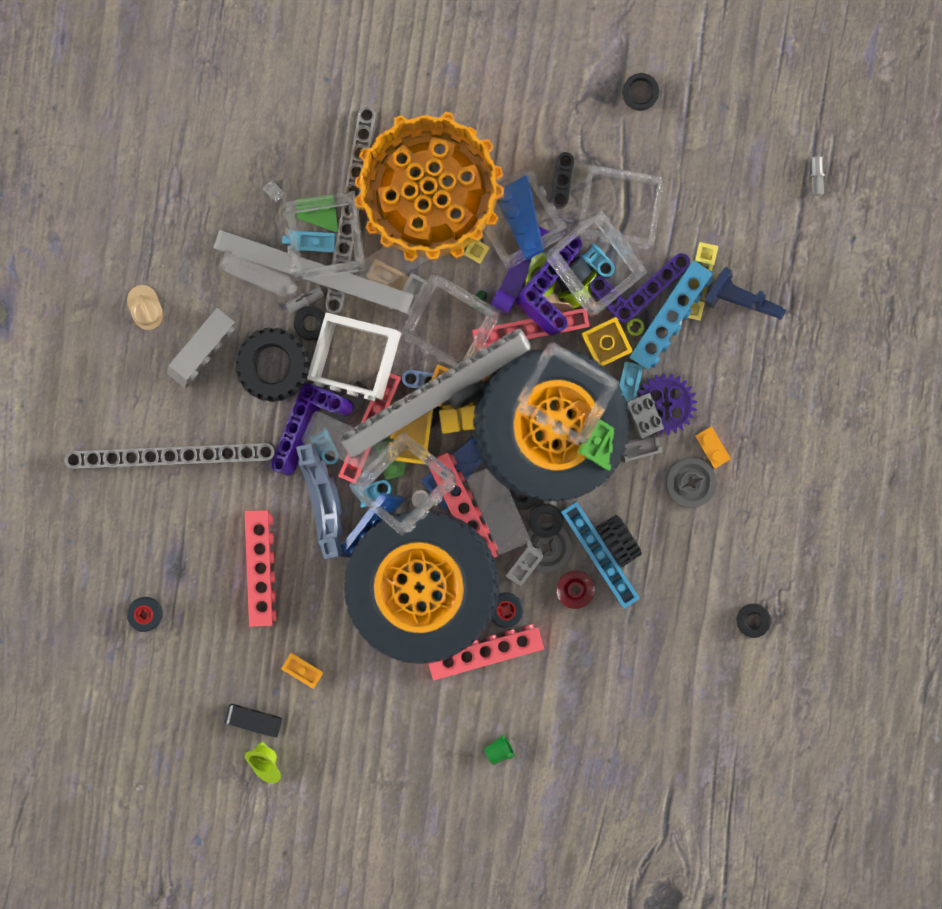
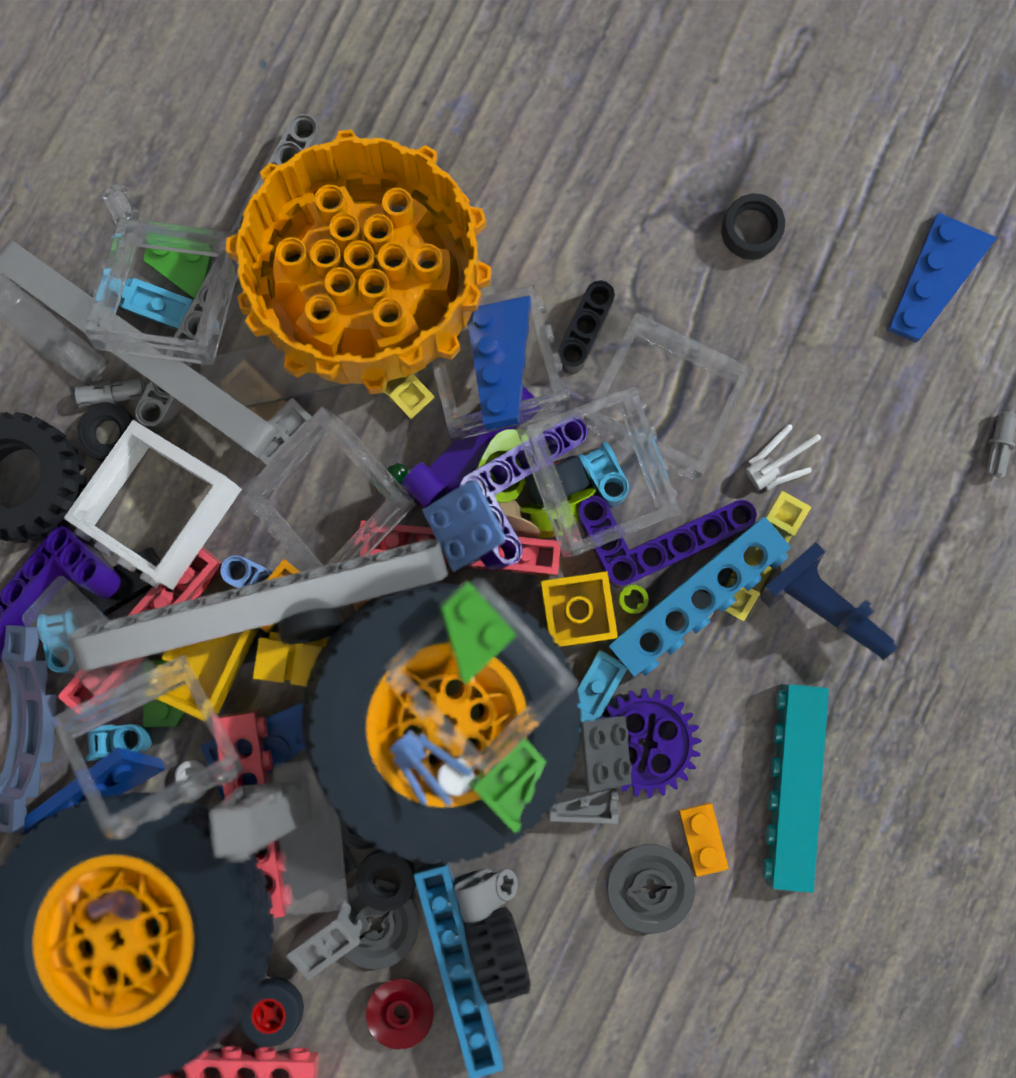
camera: 10 degrees right, 5 degrees down
(414, 568) = (116, 902): none -> arm
(474, 501) = (258, 816): none -> light grey wedge
(532, 316) = (464, 525): none -> medium blue bracket
(543, 444) = (410, 753): none -> medium blue plant
(557, 371) = (474, 630): none -> bright green wing
(568, 451) = (452, 780): none -> white tile
(602, 510) = (484, 893): none -> light grey piece
(687, 232) = (764, 472): none -> white plant
(755, 82) = (939, 271): none -> blue wing
(755, 402) = (797, 788): none -> teal brick

